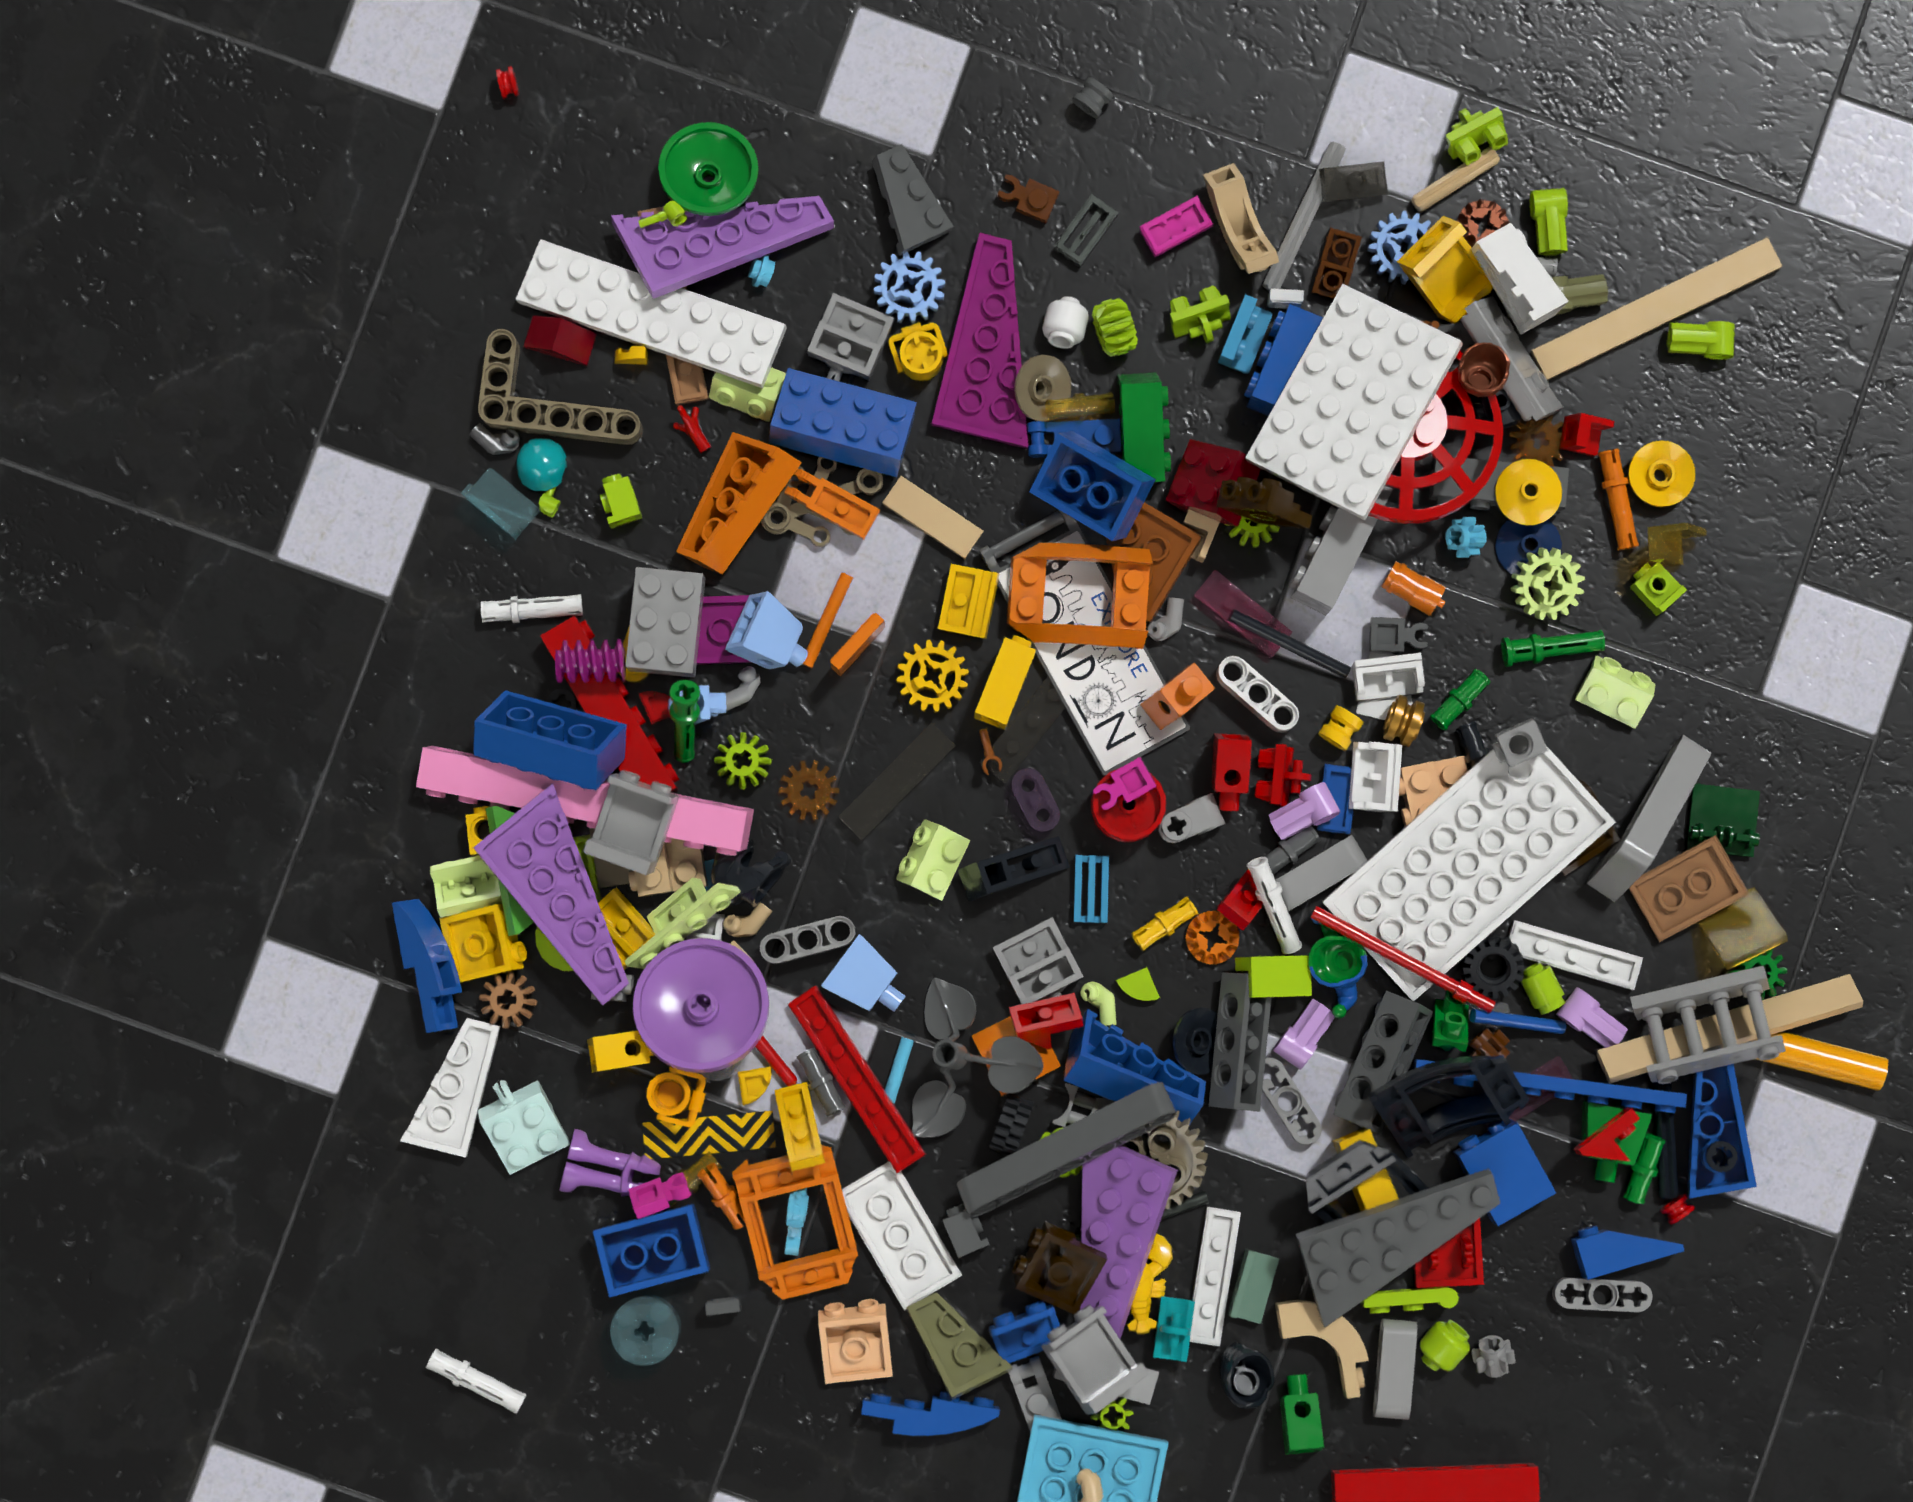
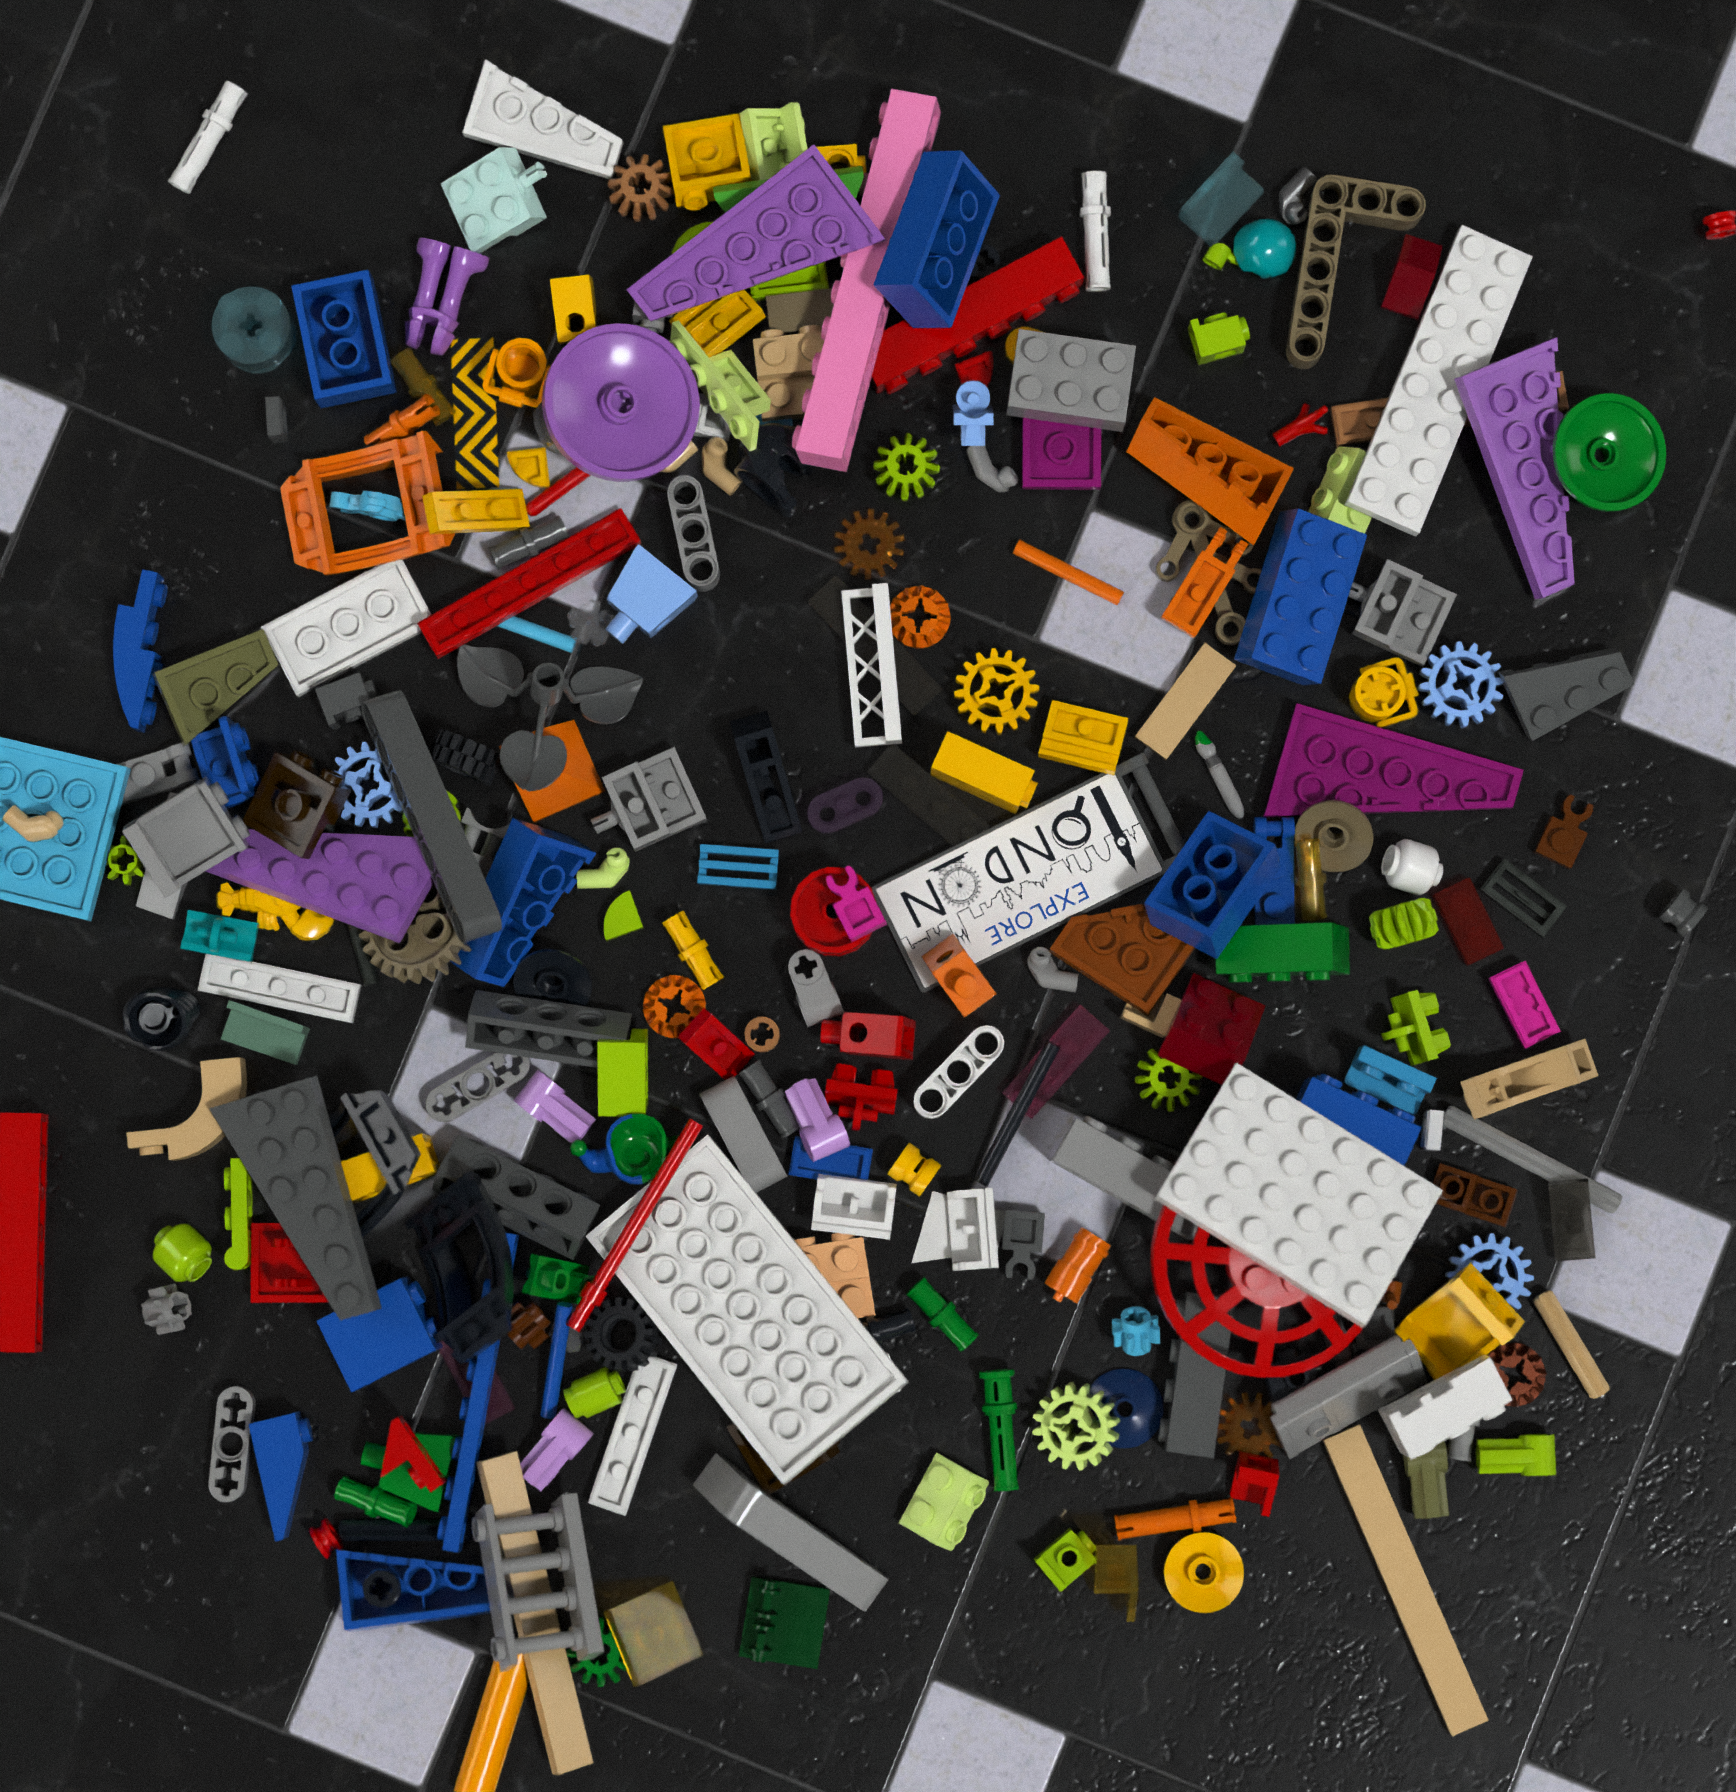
camera: 100 degrees right, 0 degrees up
(435, 970) = (684, 103): blue slope -> none
(590, 661) = (1026, 289): magenta piece -> none
(633, 823) = (833, 328): light grey panel -> none
(635, 355) = (1390, 358): yellow tile -> none
(654, 1195) = (406, 343): dark pink plate -> none
(671, 211) = (1559, 405): lime hand -> none
(684, 713) = (936, 399): green pin -> none
(761, 271) = (1485, 512): medium azure plate -> none
(767, 634) = (1052, 499): light blue torso -> none
(855, 1341) = (226, 568): light nougat plate -> none
(857, 643) = (1036, 602): orange tile -> none
(858, 755) = (931, 630): none -> orange gear
(888, 1025) = (589, 623): none -> clear plant
(916, 768) = (887, 667): none -> white fence
(932, 859) = (781, 682): yellowish green bracket -> none
(974, 496) = (1219, 774): none -> light grey piece
(988, 751) = (903, 751): dark orange hand -> none
(1033, 1221) = (364, 802): none -> light blue gear
(1044, 1017) = (586, 796): red slope -> none
(1107, 275) = (1468, 921): none -> clear red plate
(1128, 596) = (1081, 923): orange wedge -> none
(1225, 869) = (754, 1025): none -> medium nougat bush
(1262, 503) = (1182, 1079): dark brown plate -> none
(1270, 894) = (719, 1073): white pin -> none
(1299, 1433) = (89, 1076): green torso -> none
(1395, 1369) = (158, 1193): light grey beam -> none
(1403, 720) = (919, 1243): pearl gold wheel -> none
(1474, 131) = (1628, 1369): lime hips -> none
(1483, 369) = (1333, 1355): copper hair -> none
(1516, 503) = (1164, 1407): yellow dish -> none
(1534, 747) = (893, 1383): light grey brick -> none
(1688, 888) = (703, 1573): medium nougat tile -> none
(1712, 339) = (1364, 1643): lime piece -> none

